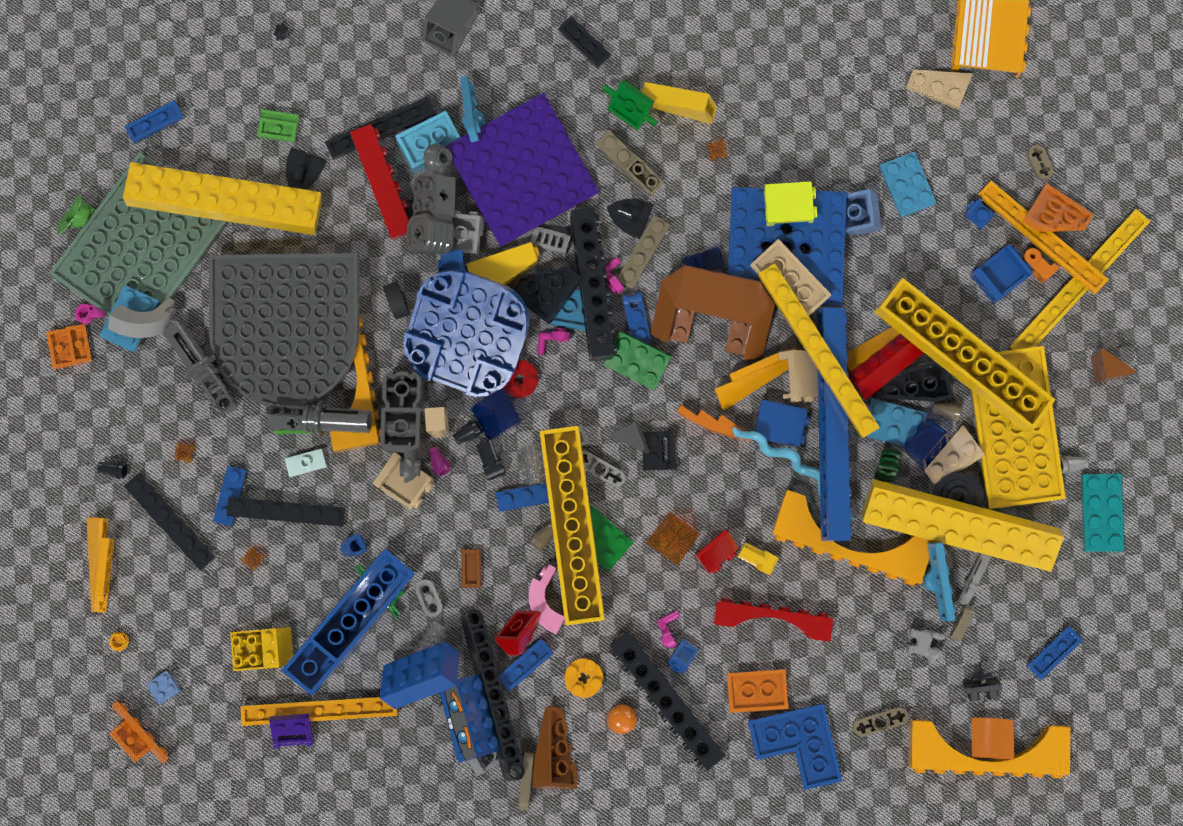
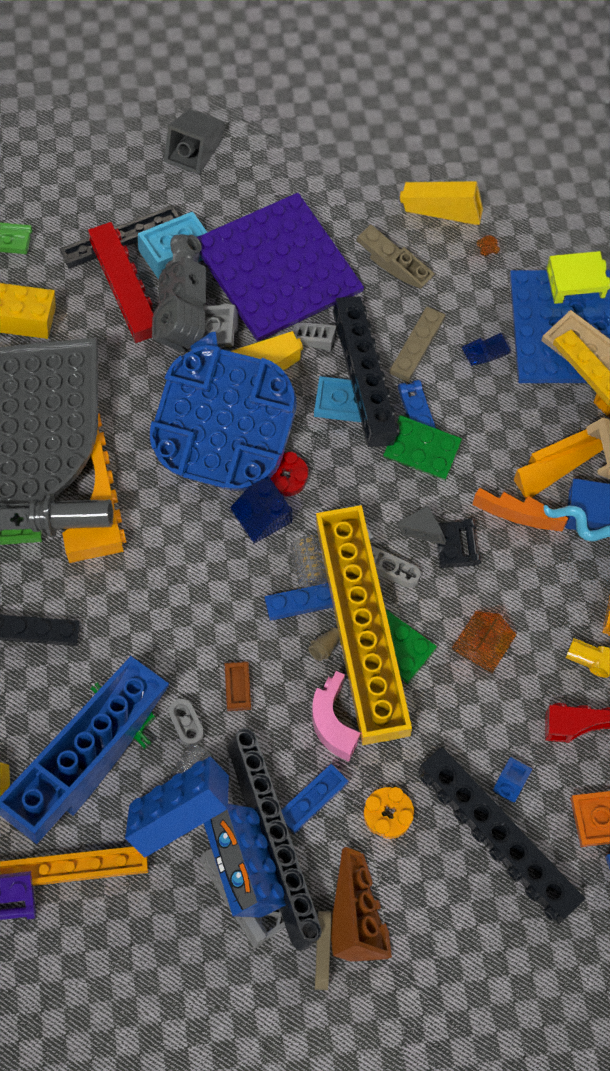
camera: 10 degrees left, 20 degrees down
(280, 32) = (13, 155): black plate -> none
(302, 169) = (36, 275): black shield -> none
(306, 463) = (32, 574): light aqua plate -> none
(353, 545) = (90, 663): blue plate -> none
(393, 484) = (151, 589): tan panel -> none
(396, 300) = (140, 393): black tyre -> none
(403, 420) = (150, 516): dark grey brick -> none
(437, 422) = (191, 516): tan brick -> none
(438, 461) = (195, 567): magenta cone -> none
(469, 432) = (229, 531): black cone -> none
(472, 118) = (223, 215): dark azure plate -> none
(492, 464) = (258, 565): black piece -> none
(518, 632) = (302, 755): red slope -> none
(547, 290) = (318, 376): black plate -> none
(558, 335) = (329, 426): dark pink plate -> none
(584, 42) = (337, 155): black plate -> none
(613, 283) = (390, 370): dark pink plate -> none
(621, 719) = (441, 863): orange hair -> none
(630, 105) = (392, 203): green plate -> none
(630, 216) = (400, 310): black shield -> none
(667, 638) = (491, 756): dark pink plate -> none
(716, 295) = (511, 368): dark orange slope -> none
(716, 552) = (541, 645): red slope -> none

